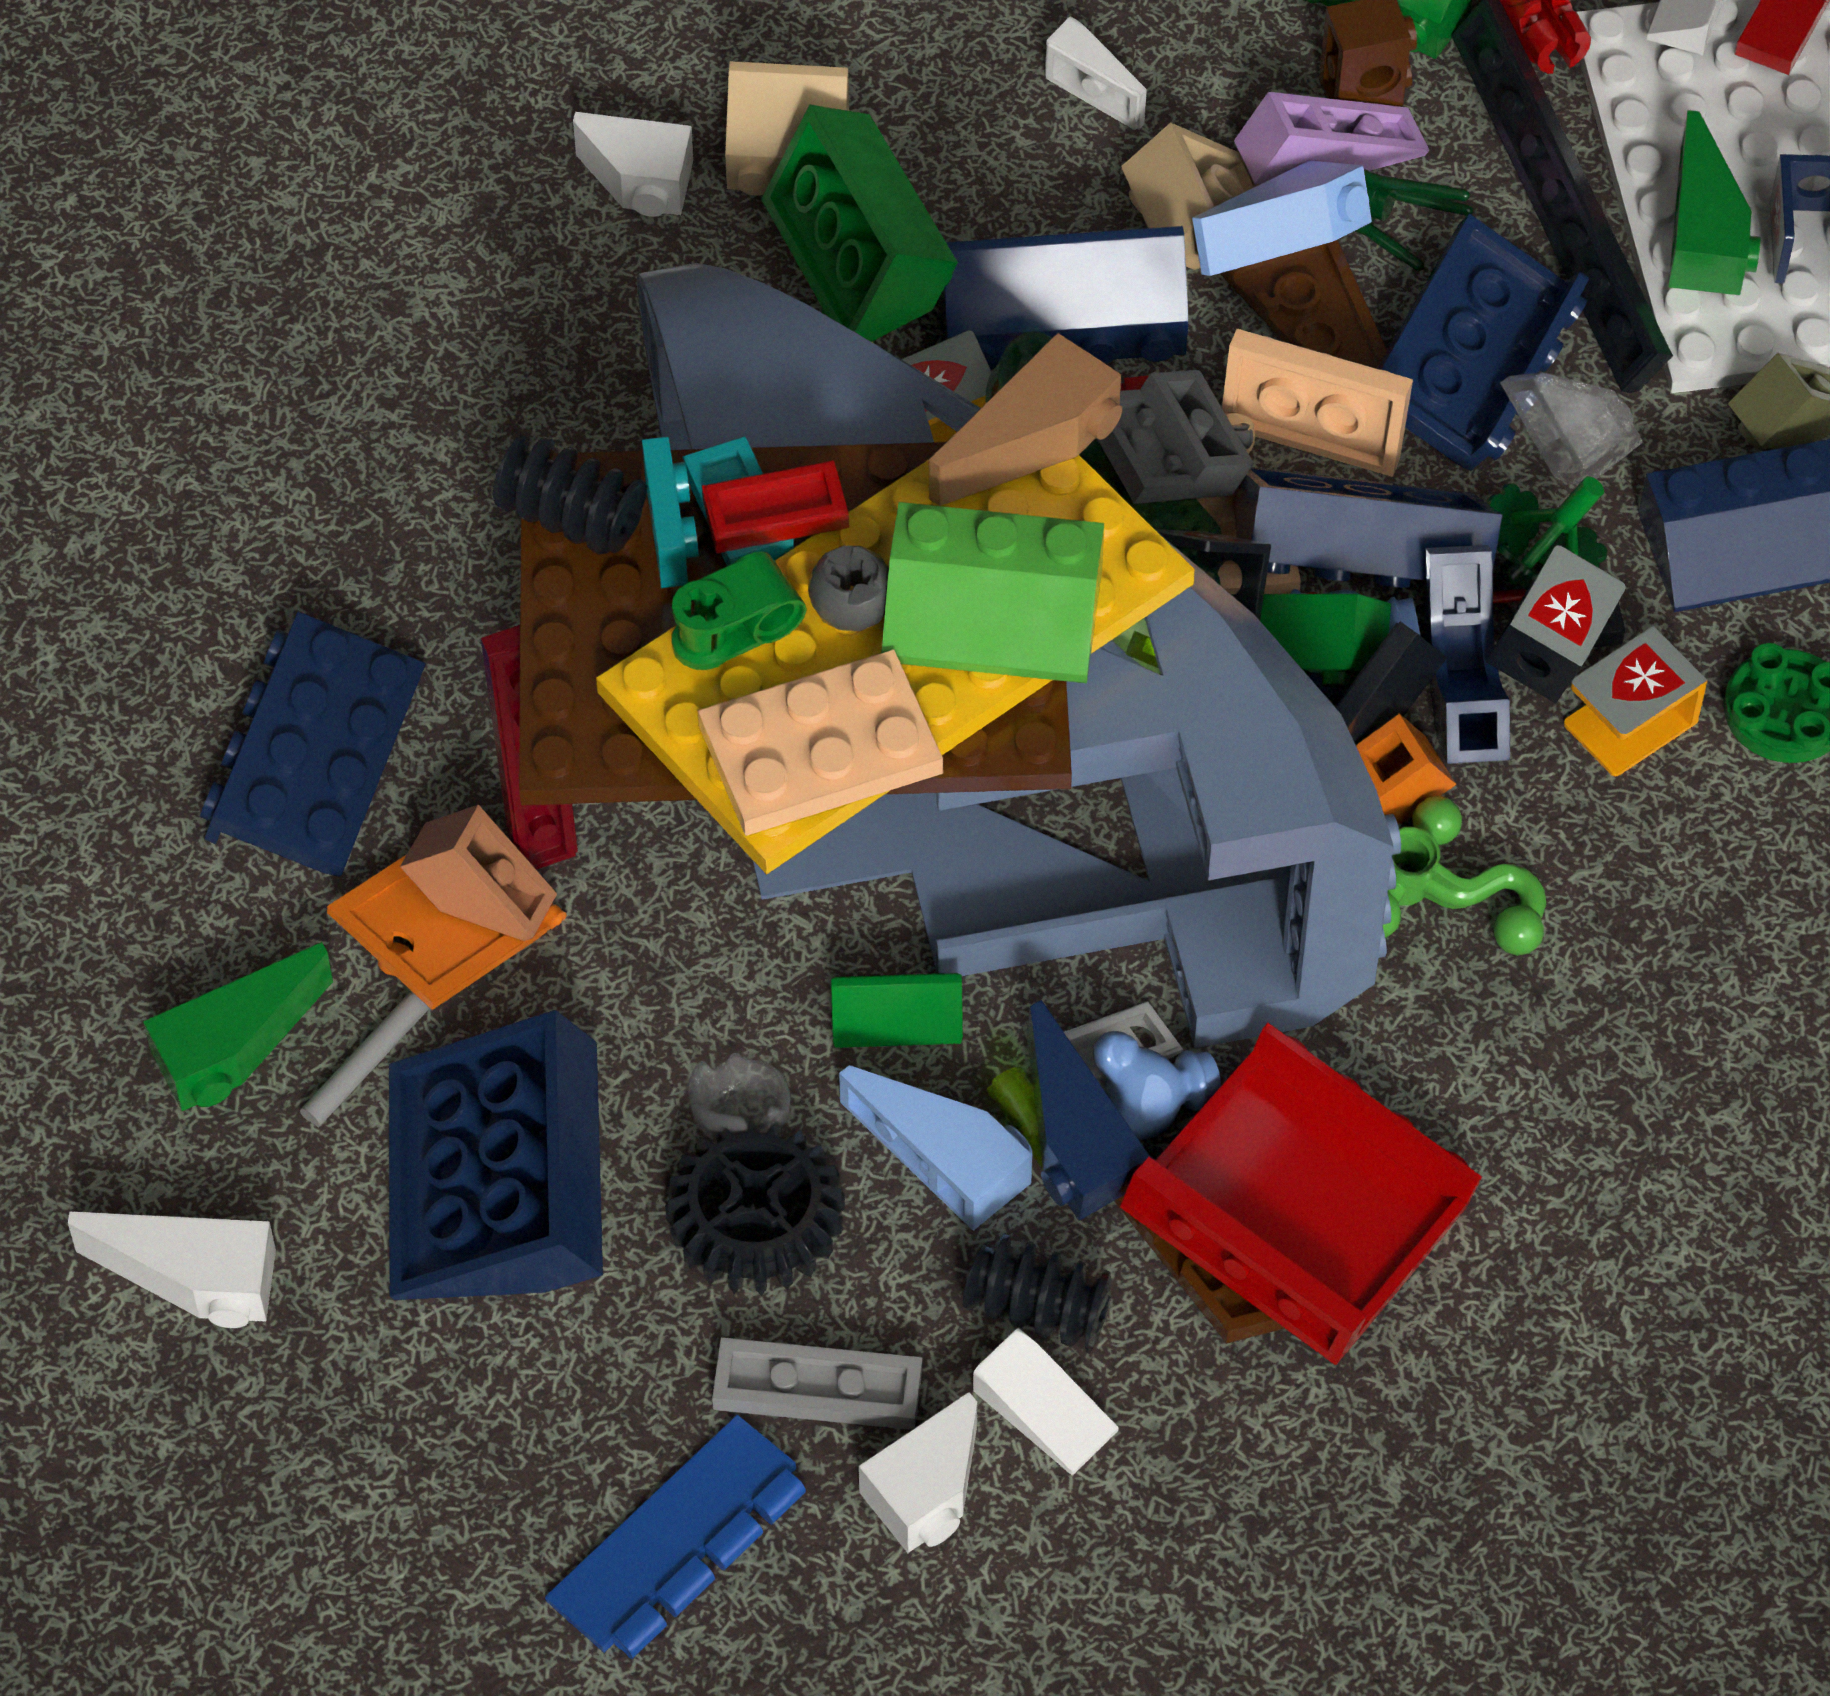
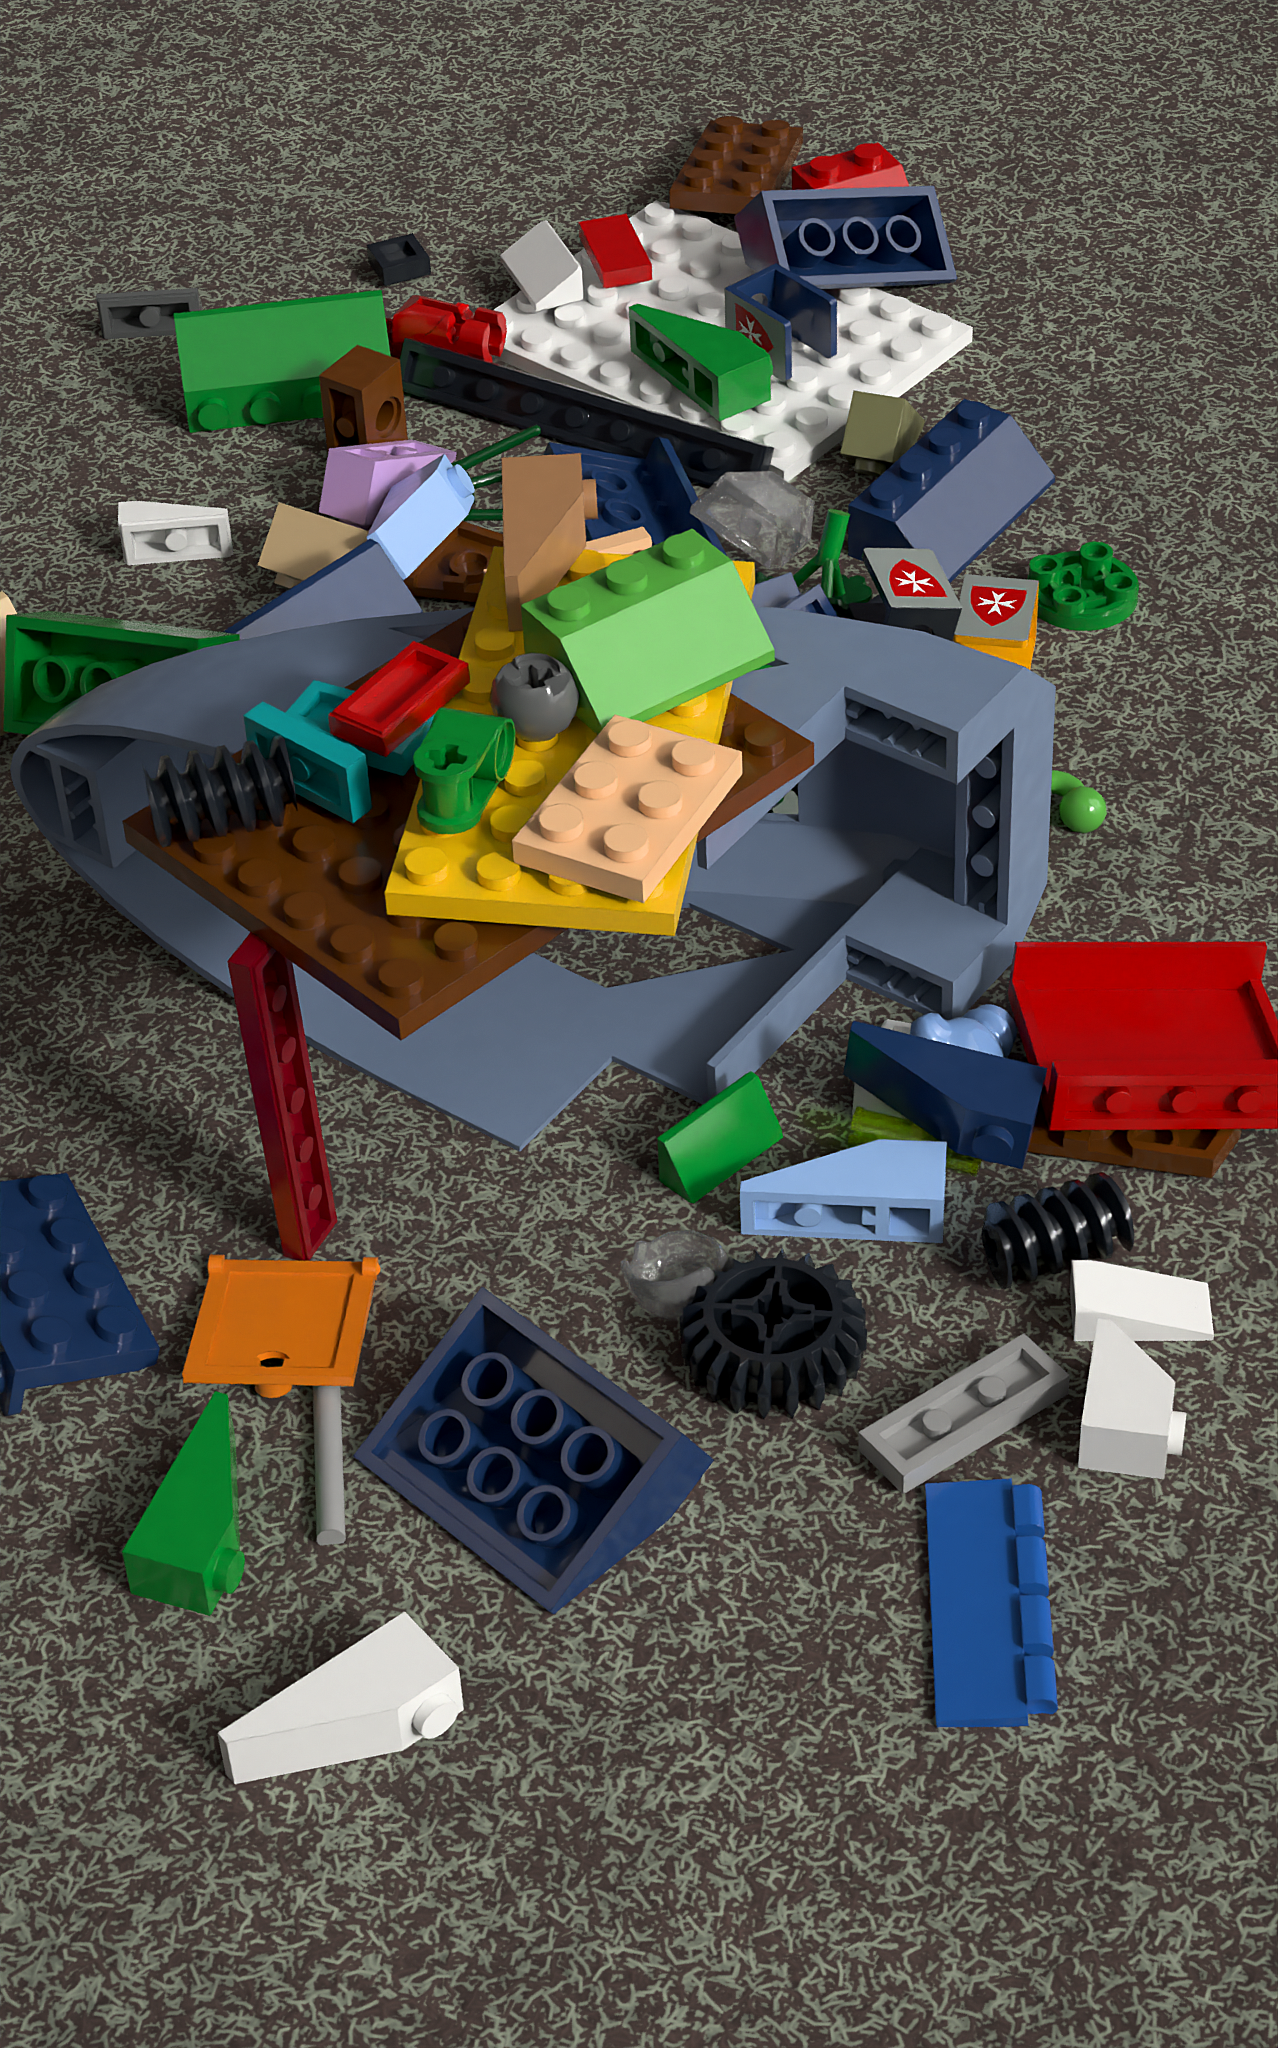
camera: 40 degrees left, 15 degrees down
(478, 874) = (285, 1263): nougat slope -> none

